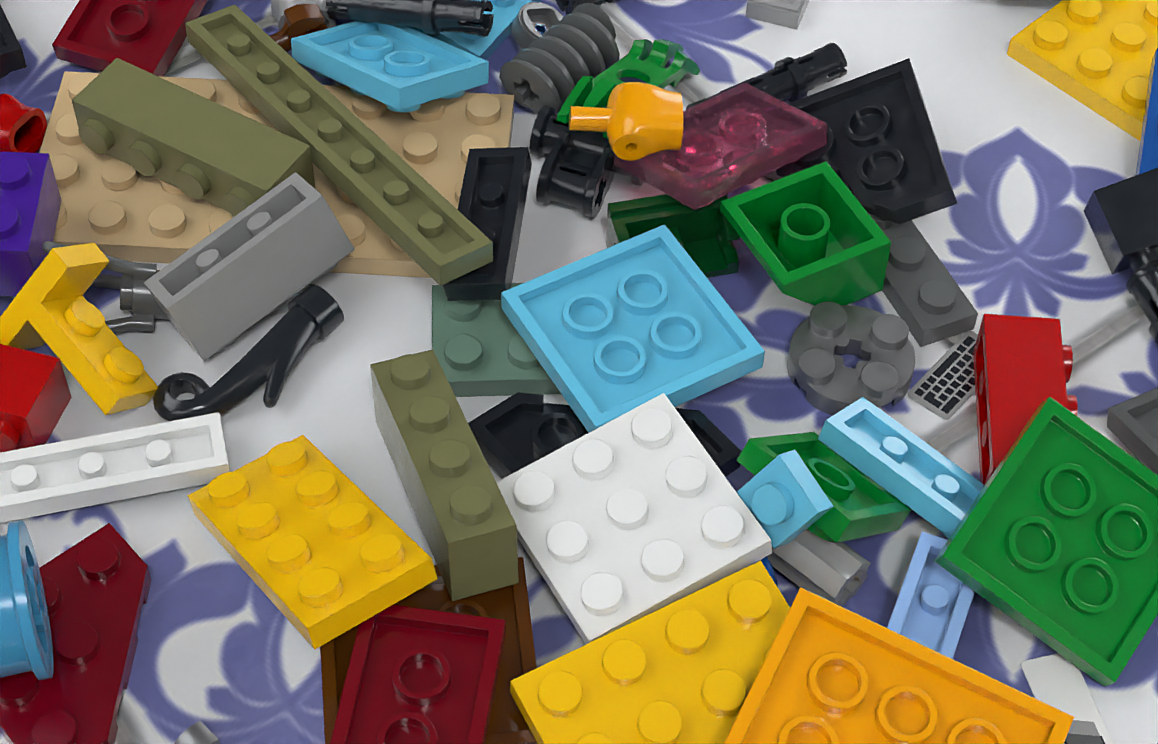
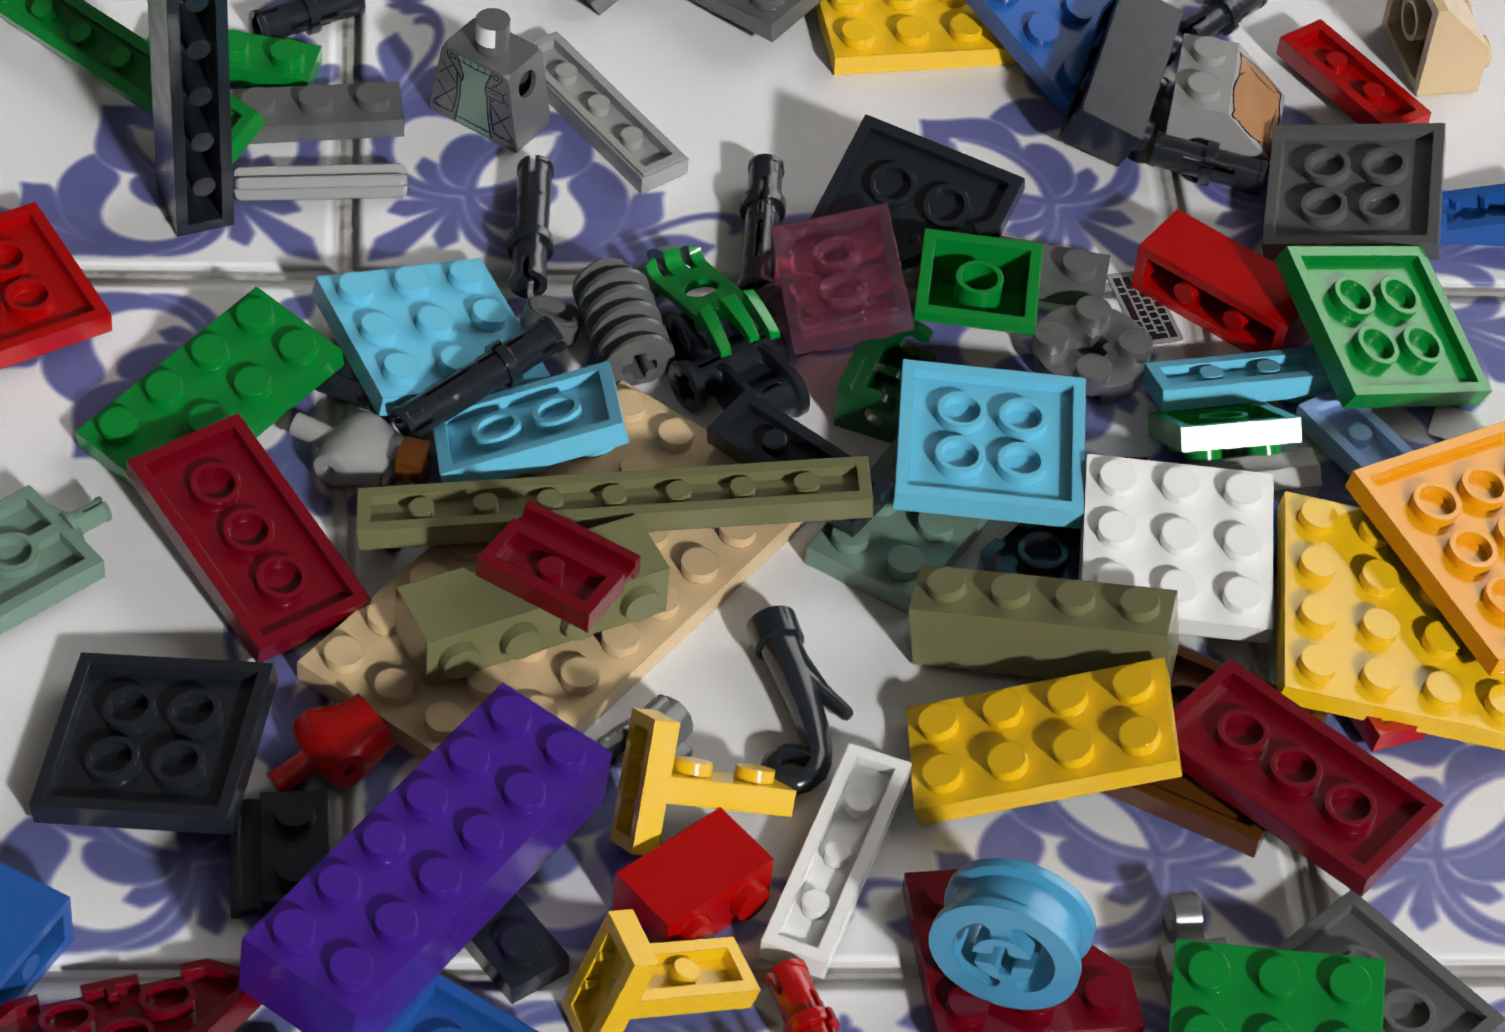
camera: 60 degrees left, 5 degrees down
(189, 121) = (558, 566): none -> dark red plate
(250, 266) = (719, 634): light grey brick -> none
(636, 120) = (802, 298): light orange piece -> none
(785, 498) = (1248, 440): medium azure plate -> none

